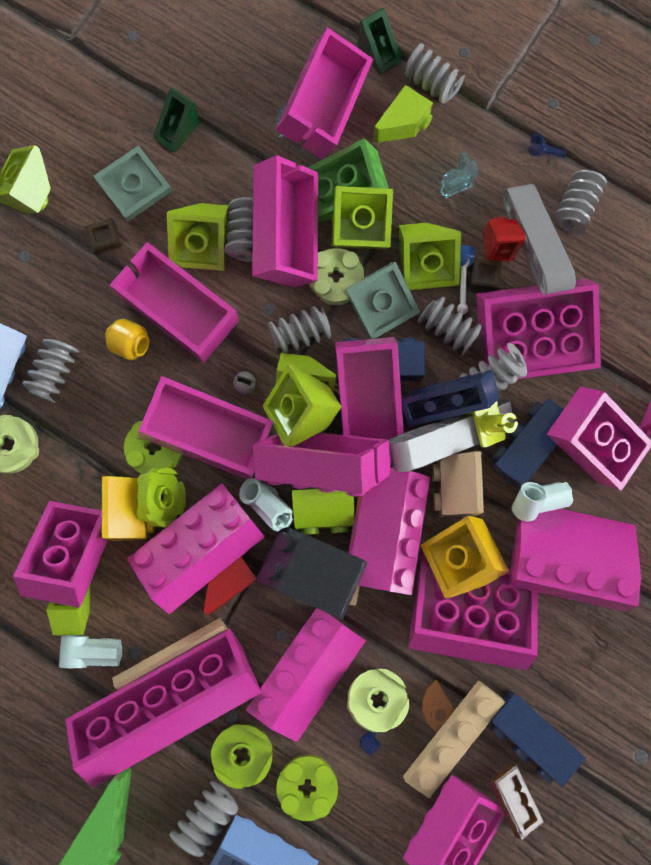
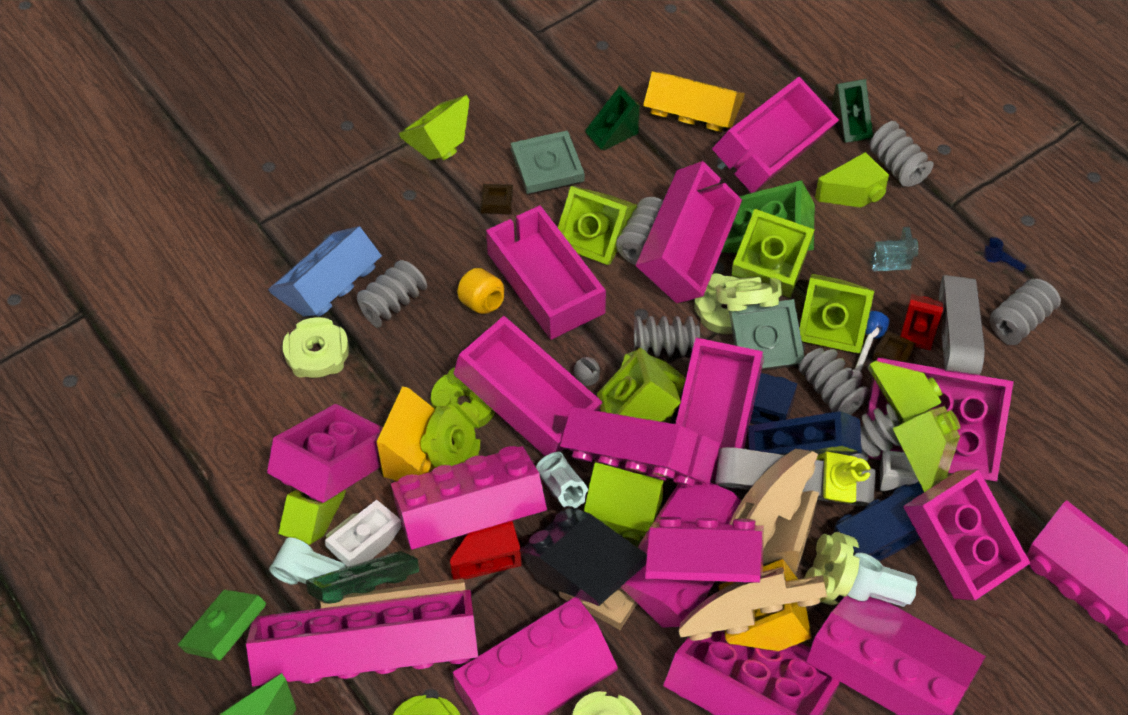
camera: 25 degrees right, 25 degrees down
(42, 734) = (222, 624): none -> bright green plate
(119, 607) = (363, 534): none -> white slope
(138, 651) = (362, 577): none -> clear green plate
(236, 74) = (692, 101): none -> yellow slope
(357, 270) = (749, 291): none -> yellowish green plate
(415, 553) = (705, 550): none -> dark pink slope
(443, 476) = (777, 491): none -> tan slope
(449, 577) = (735, 604): none -> tan slope
(506, 502) = (836, 564): none -> yellowish green plate
(518, 324) = (906, 389): none -> lime slope
(526, 390) = (895, 471): none -> white slope
(548, 366) = (930, 444): none -> lime slope

